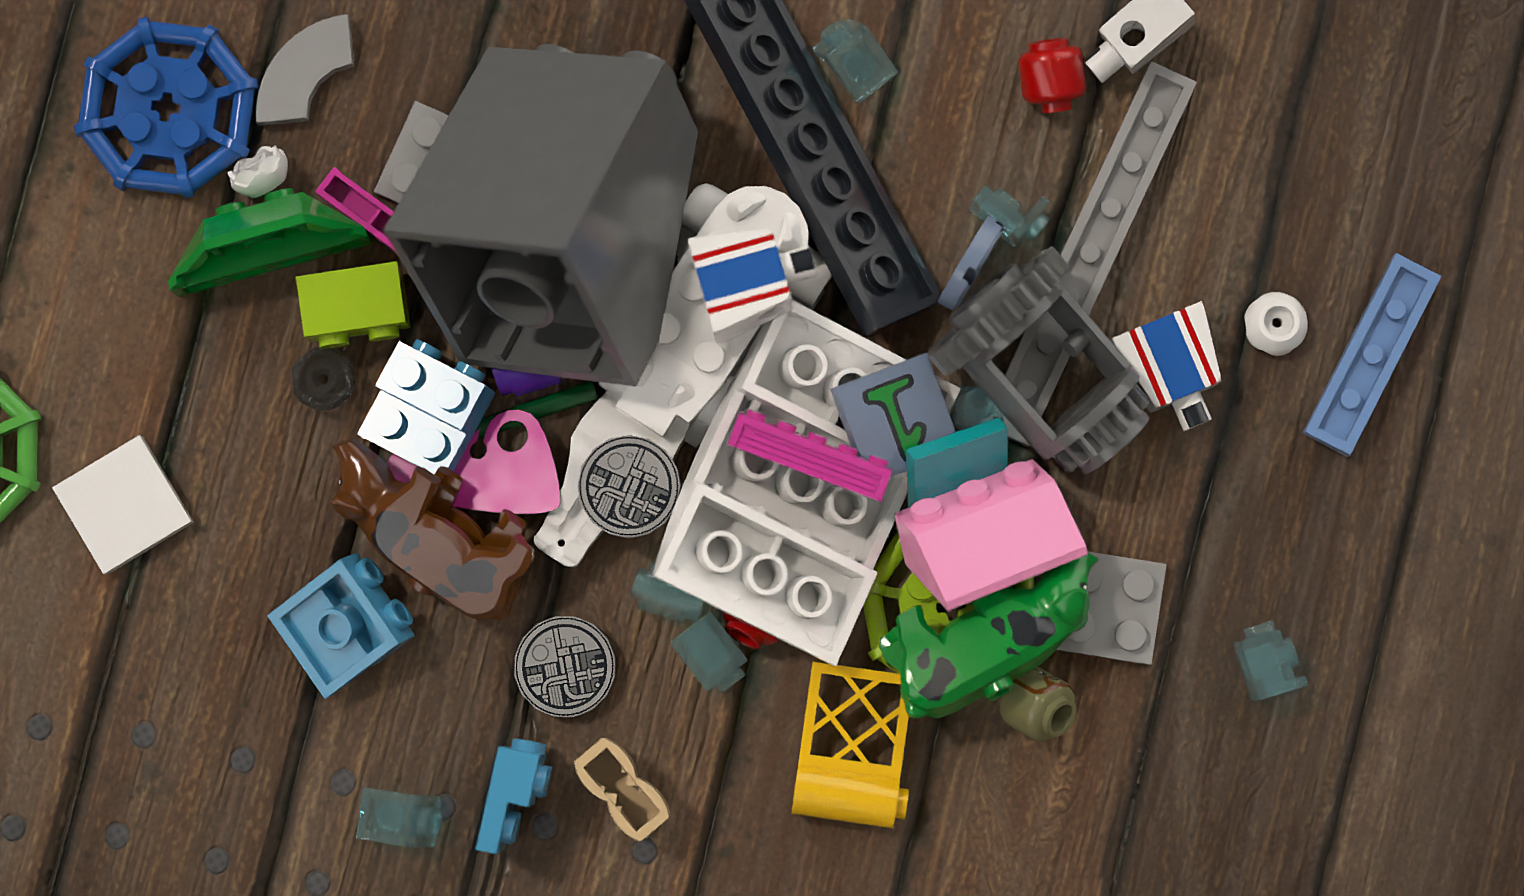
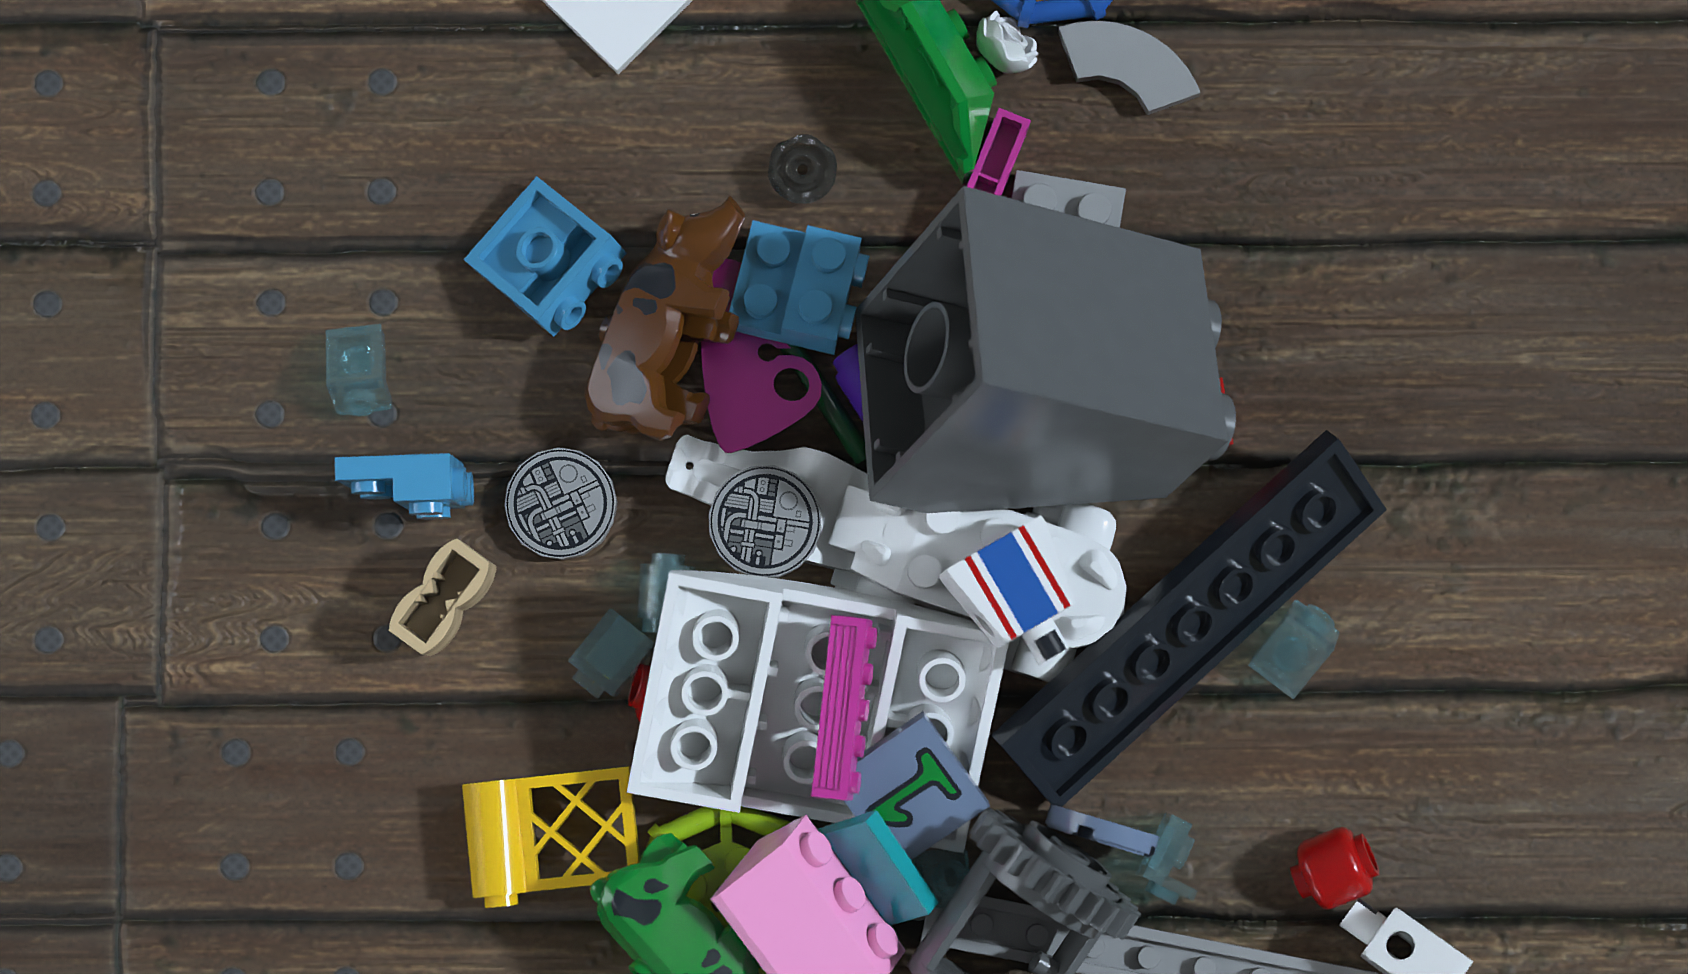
camera: 75 degrees right, 0 degrees up
(353, 304) = (888, 178): lime brick -> none

